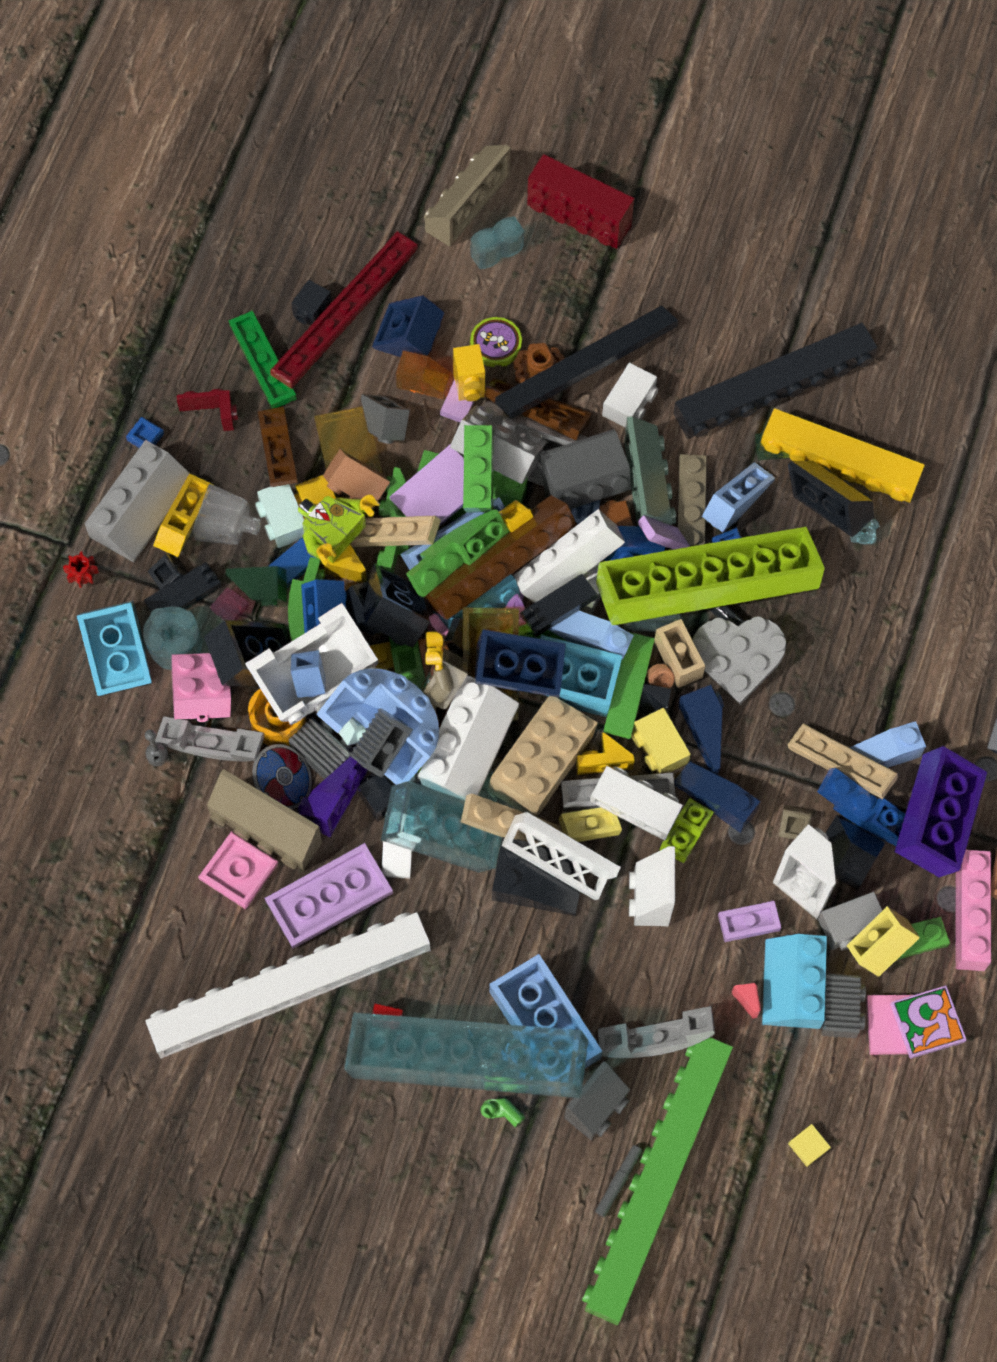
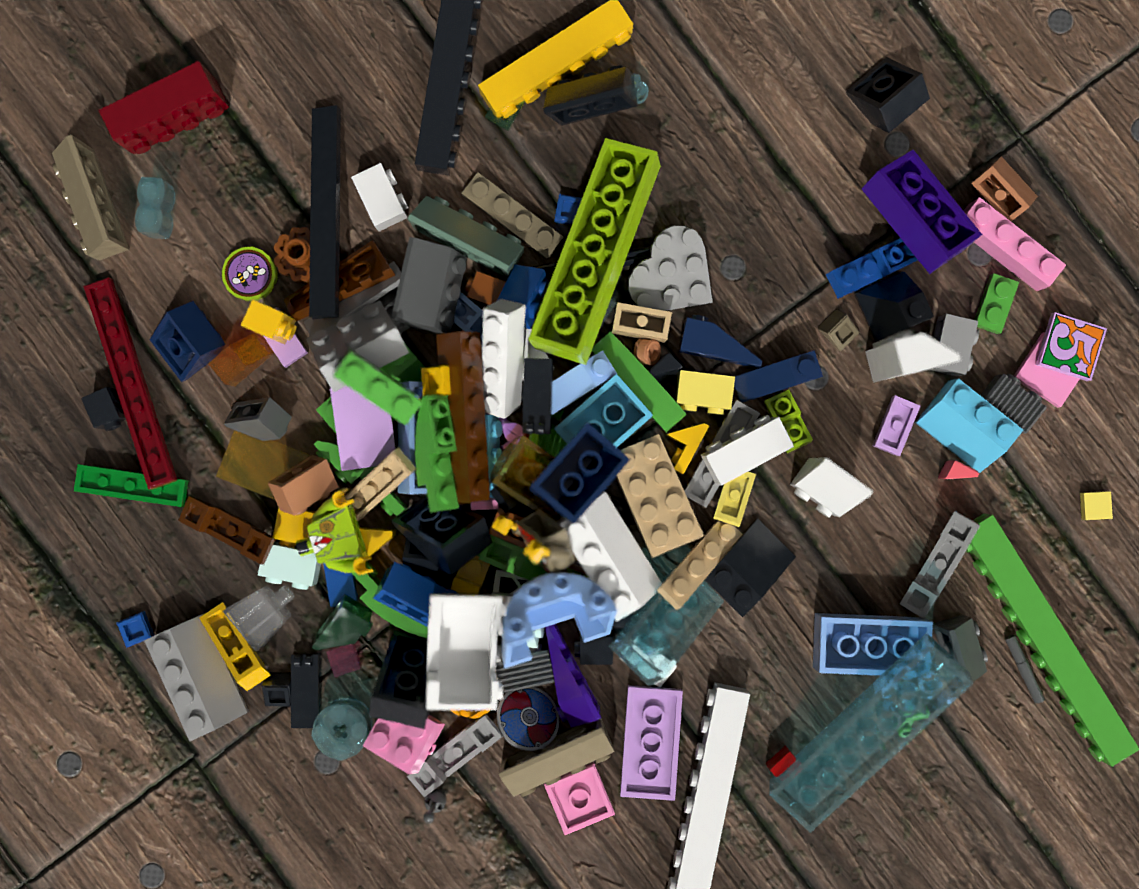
camera: 55 degrees left, 20 degrees up
(86, 574) = (234, 767): red gear -> none
(114, 647) = (315, 781): medium azure slope -> none
(209, 400) = (160, 547): dark red bracket -> none
(308, 674) = (466, 655): medium blue brick -> none
(381, 742) = (566, 632): dark grey brick -> none
(564, 845) = (762, 525): white fence -> none
(662, 533) = (530, 262): lavender tile -> none
(737, 496) = (533, 172): light blue slope -> none
(832, 754) = (821, 256): tan tile -> none
(883, 941) = (992, 336): light yellow brick -> none
(893, 745) = (831, 219): light blue slope -> none

